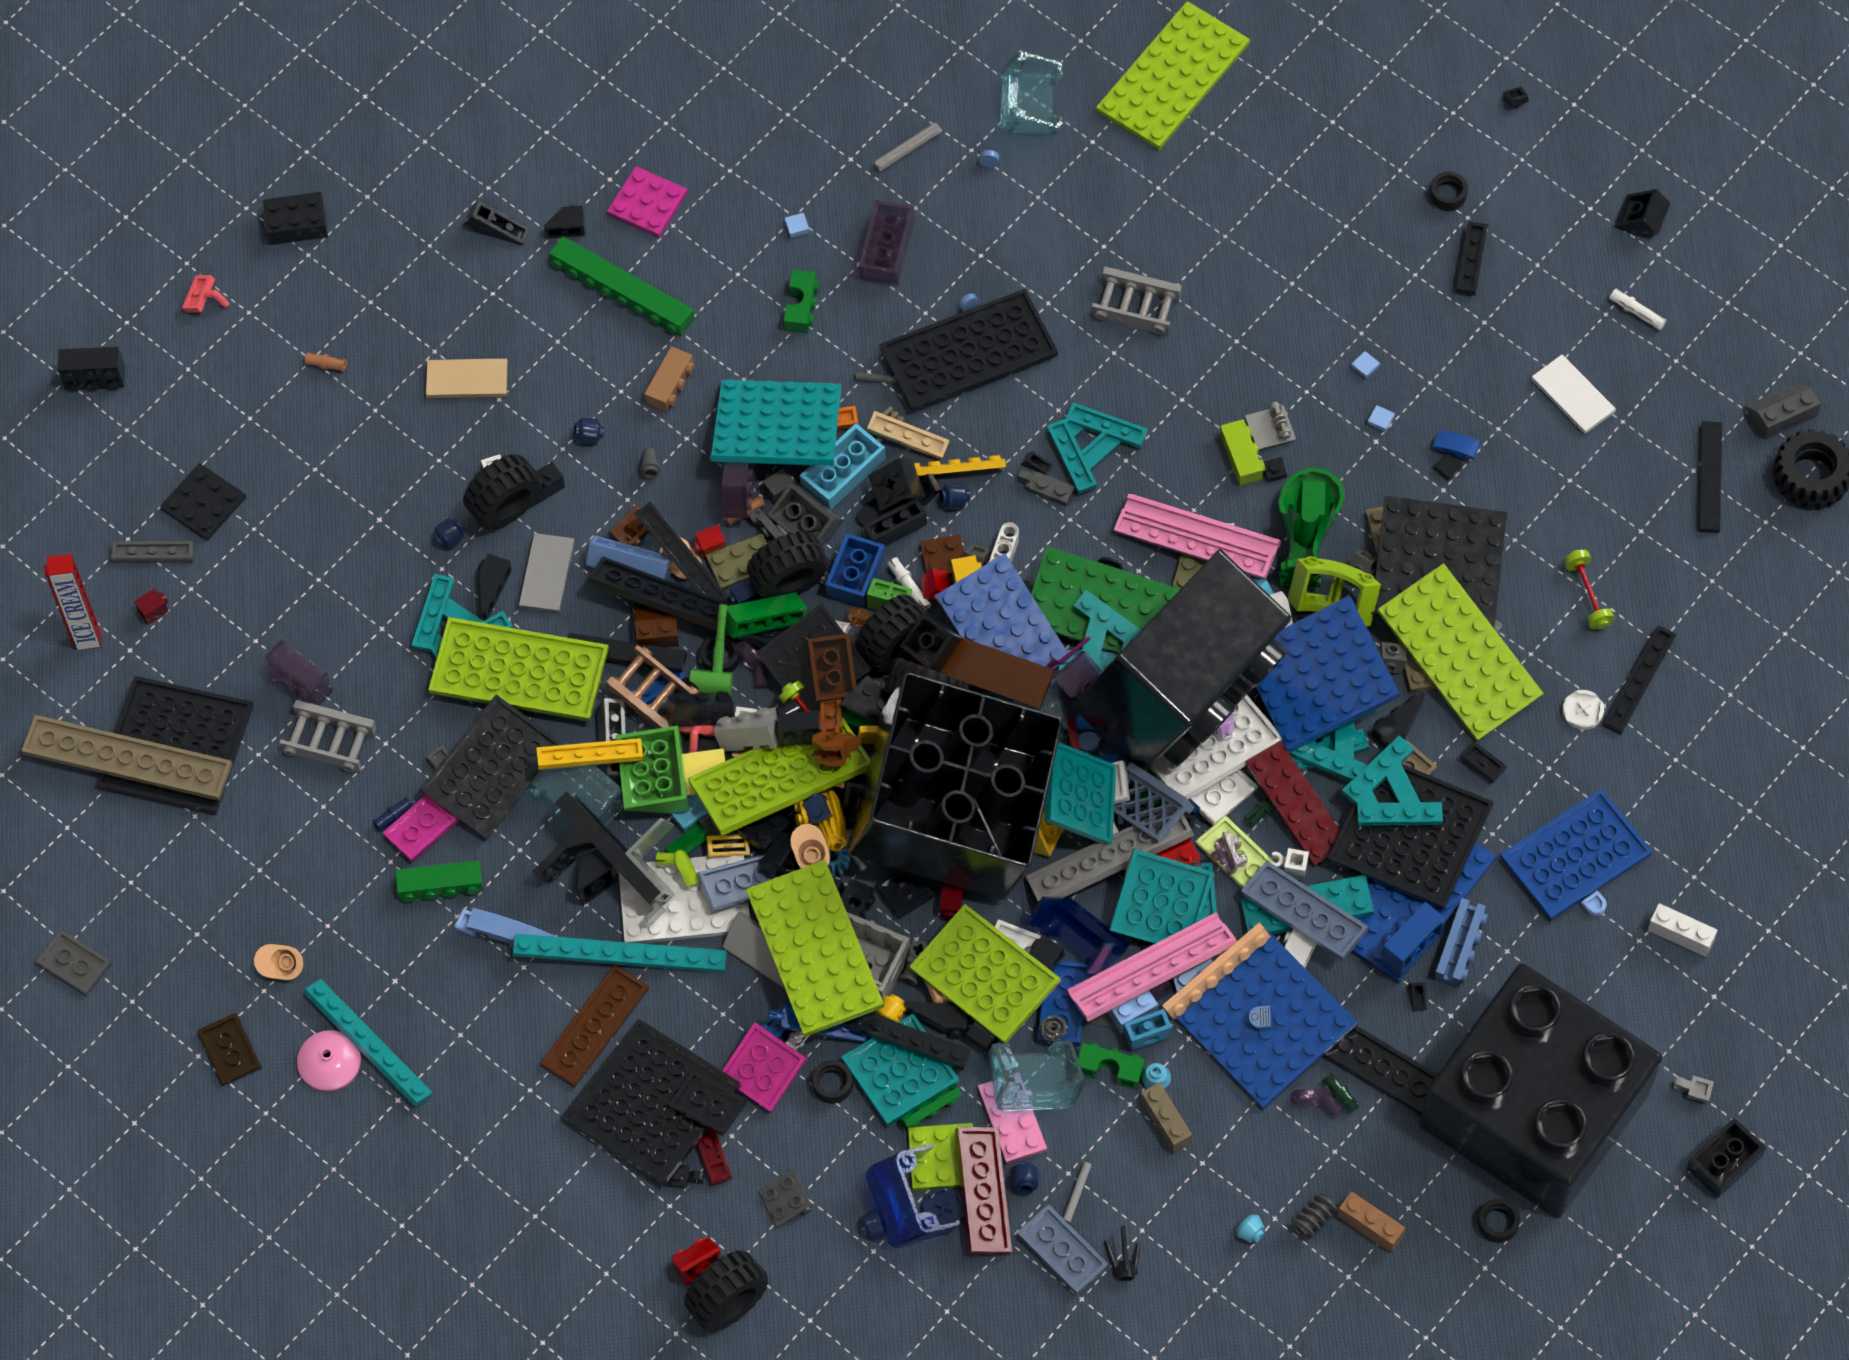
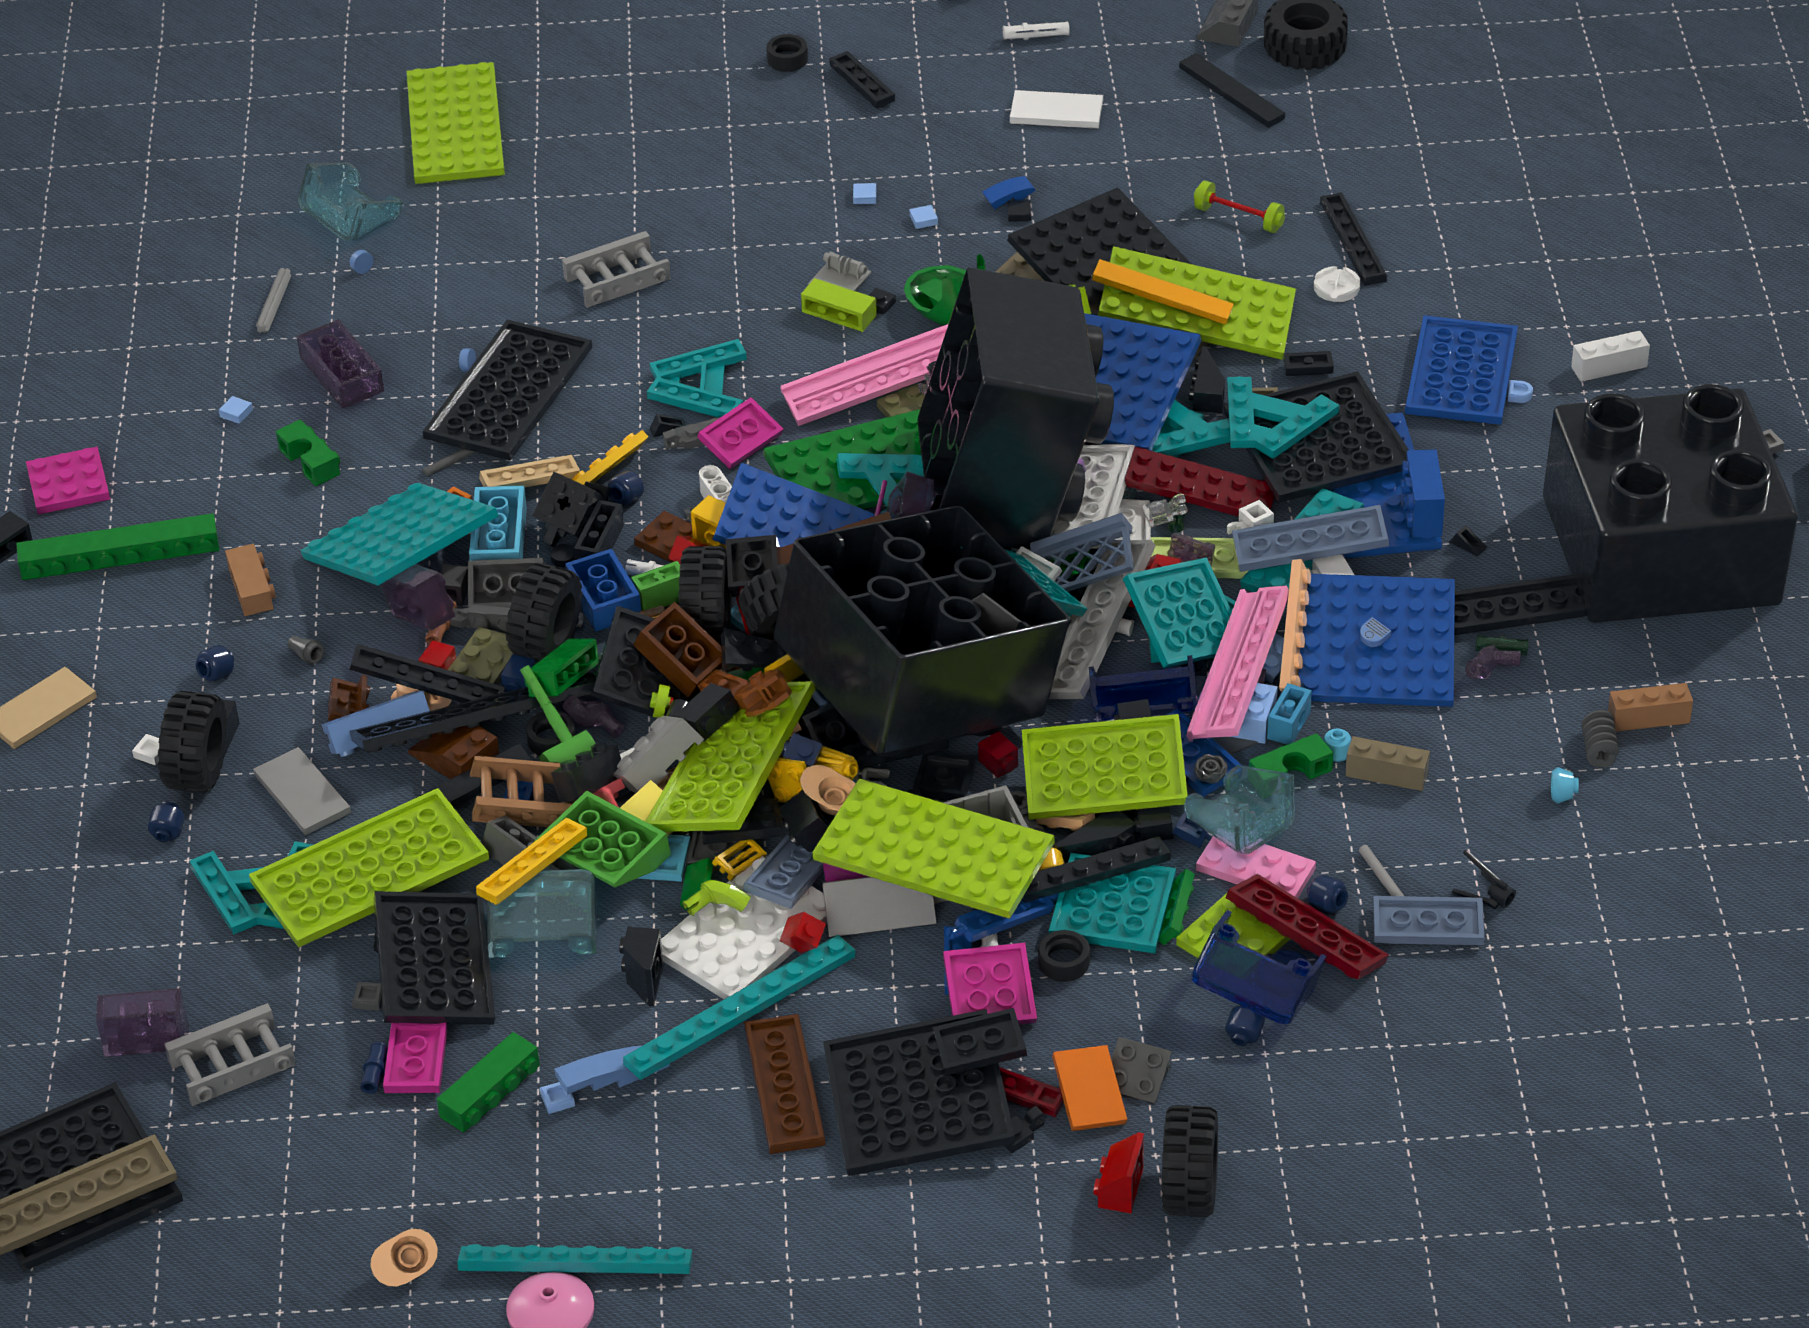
camera: 45 degrees left, 20 degrees down
(493, 577) = (254, 829): black slope -> none
(593, 834) = (678, 919): black piece -> none
(700, 934) = (802, 932): none -> red brick
(743, 1186) = (1089, 1088): none -> orange tile
(1066, 511) = (740, 433): none -> dark pink plate
(1246, 804) = (1163, 512): none -> clear plate
(1434, 629) = (1162, 291): none -> light orange tile
(1460, 943) = (1460, 487): medium blue brick -> none
(1500, 1204) = (1738, 646): black tyre -> none

